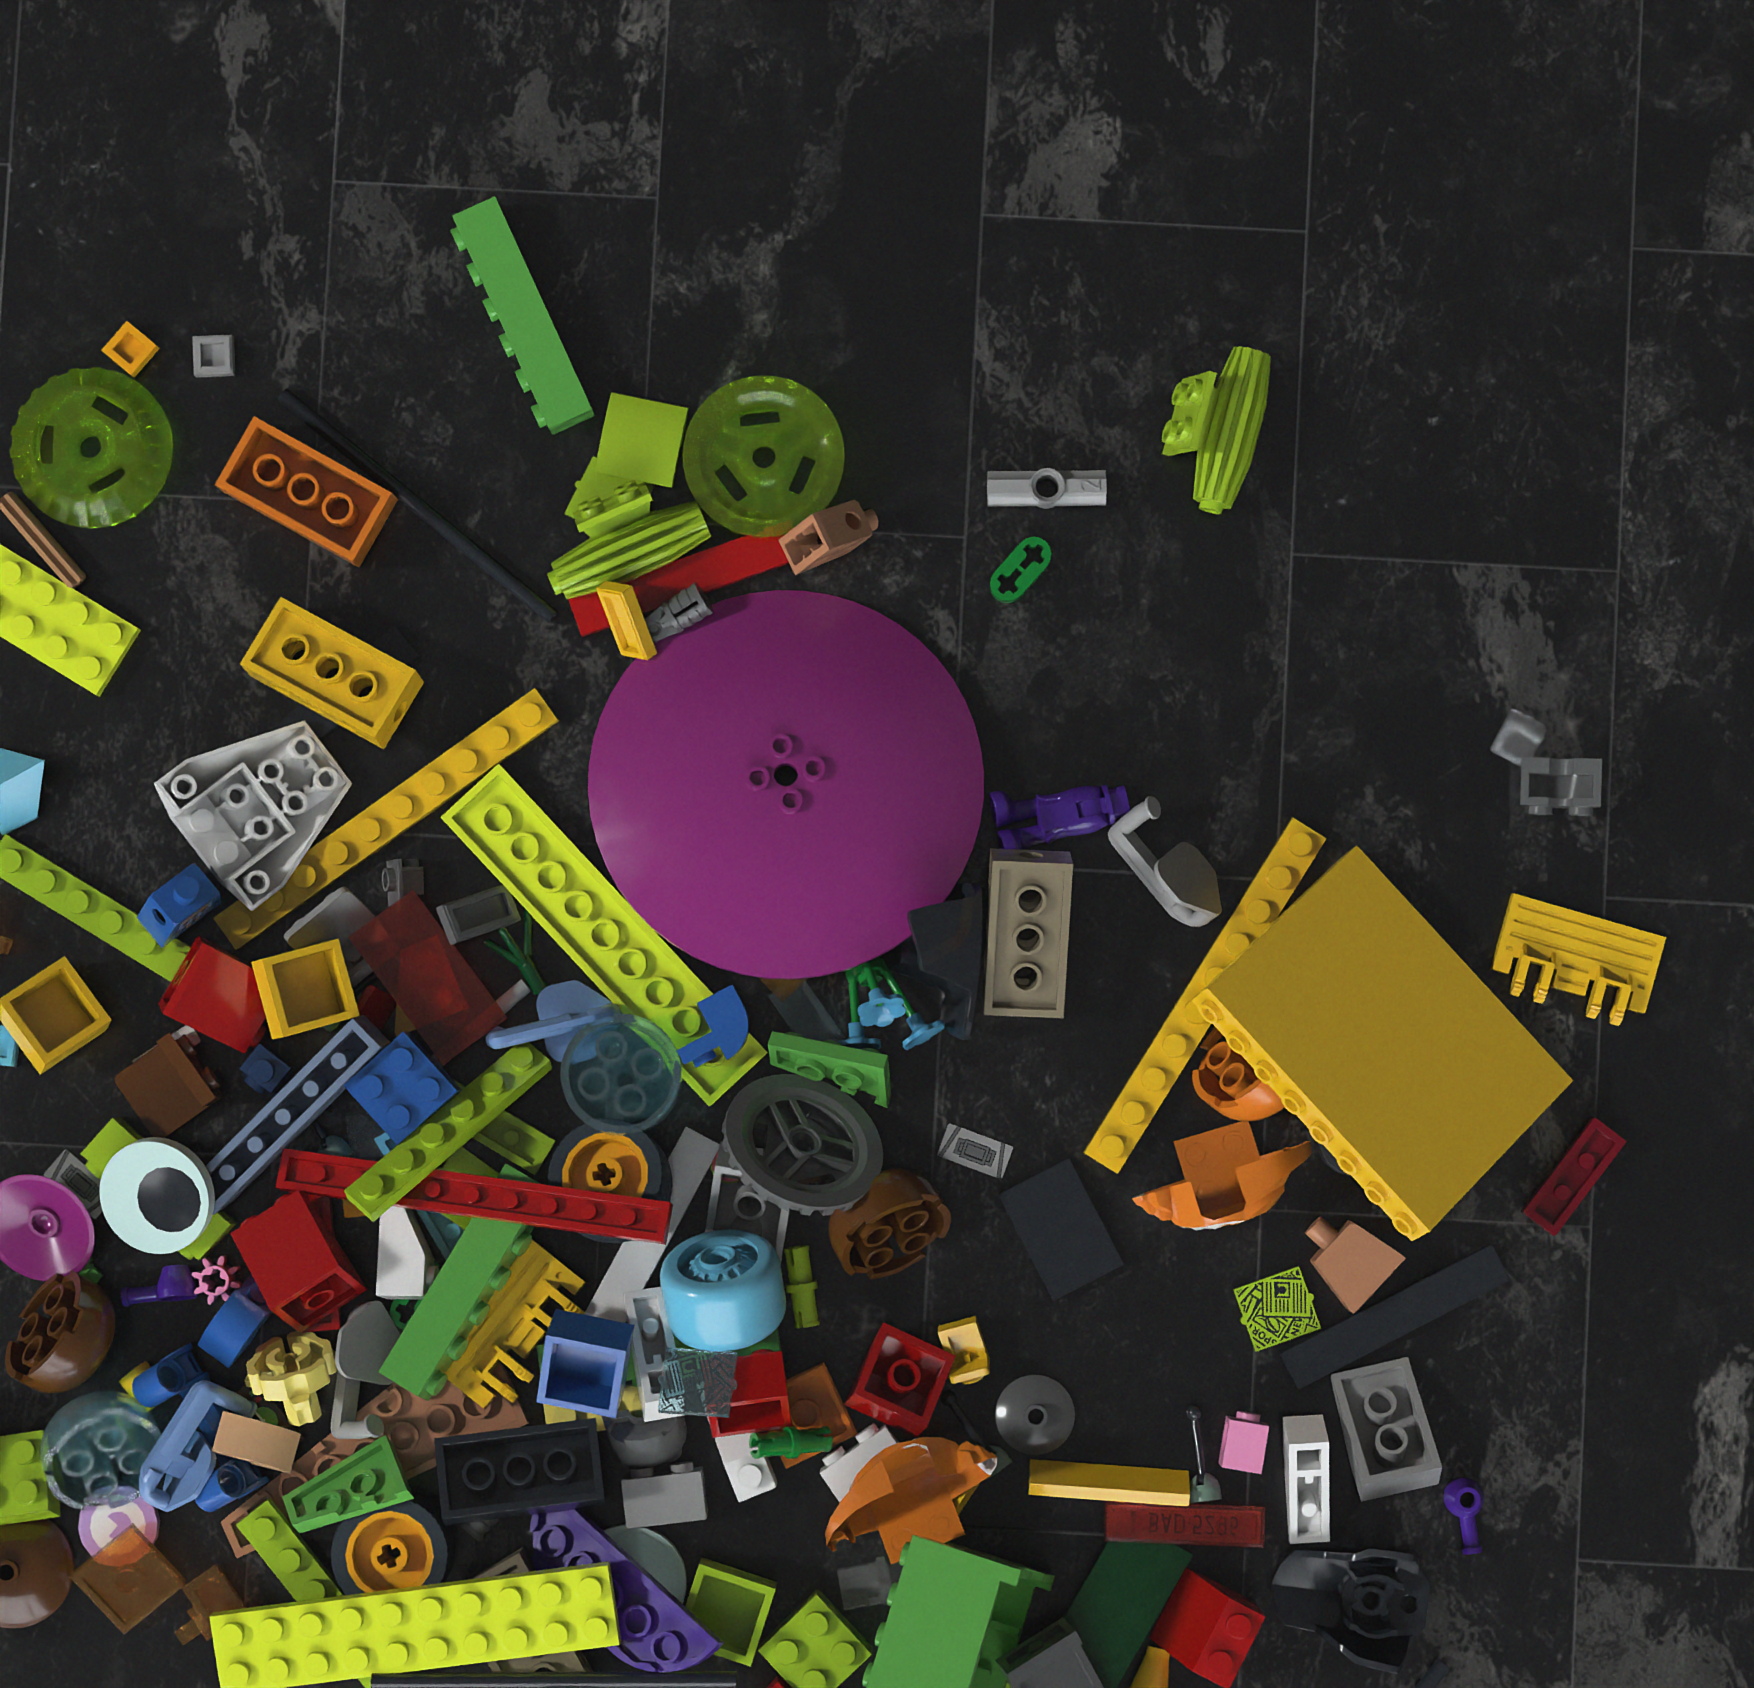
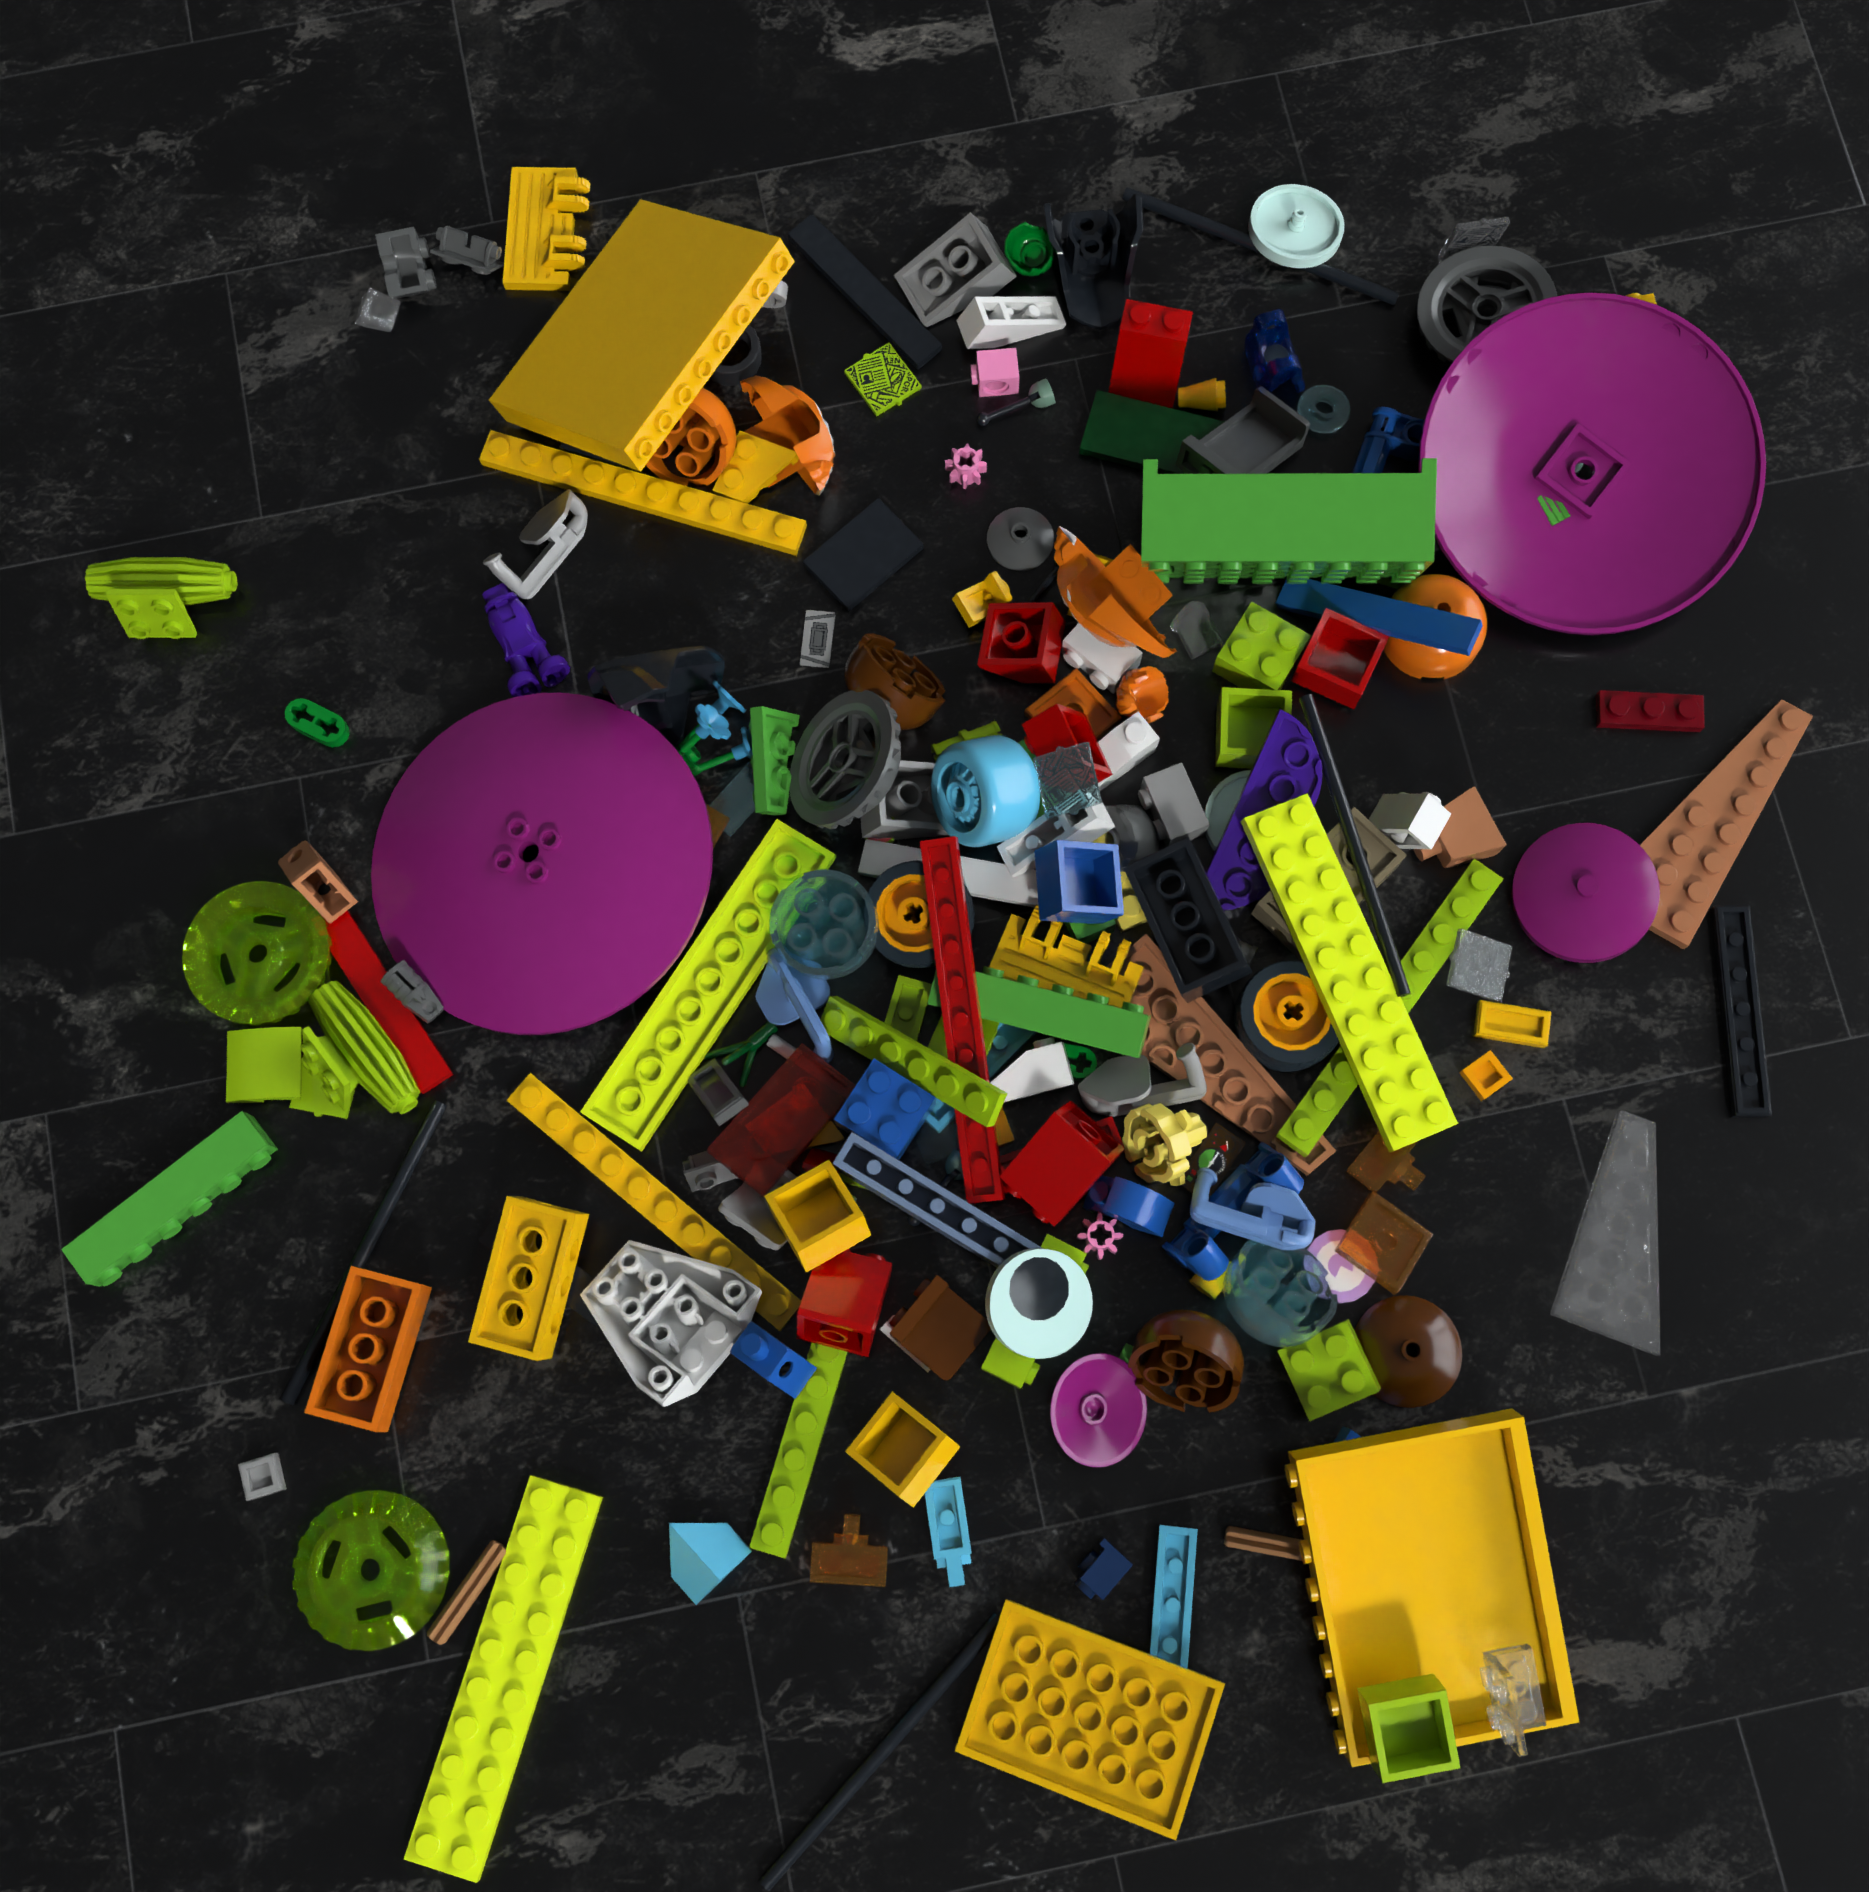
camera: 105 degrees left, 10 degrees down
(78, 1179) = (1040, 1398): sticker -> none
(130, 349) = (269, 1556): light orange plate -> none
(173, 1285) = (1113, 1275): dark purple bar -> none
(256, 1442) = (1231, 1158): light nougat slope -> none
(267, 1070) = (903, 1242): dark blue brick -> none
(350, 1488) = (1245, 1061): bright green wing -> none
(626, 620) = (426, 1030): yellow tile -> none
(728, 1024) = (760, 850): blue brick -> none
(790, 1442) = (1097, 709): green pin -> none
(800, 1498) = (1143, 691): none -> orange hair
(1045, 952) = (616, 623): dark tan brick -> none
(1073, 488) = (245, 734): light grey piece -> none
(1109, 1482) = (1057, 463): yellow tile -> none
(1124, 1373) = (965, 457): none -> bright pink gear
(1184, 1524) = (1074, 401): clear red tile -> none
(1198, 1129) = (752, 467): none -> yellow wing
(1351, 1261) = (829, 328): nougat torso -> none
(1389, 1524) = (1029, 250): none -> green hair
(1465, 1513) = (996, 214): dark purple bar -> none
(1552, 873) = (480, 255): none -> dark grey hinge
(1573, 1176) = (718, 188): dark red plate -> none

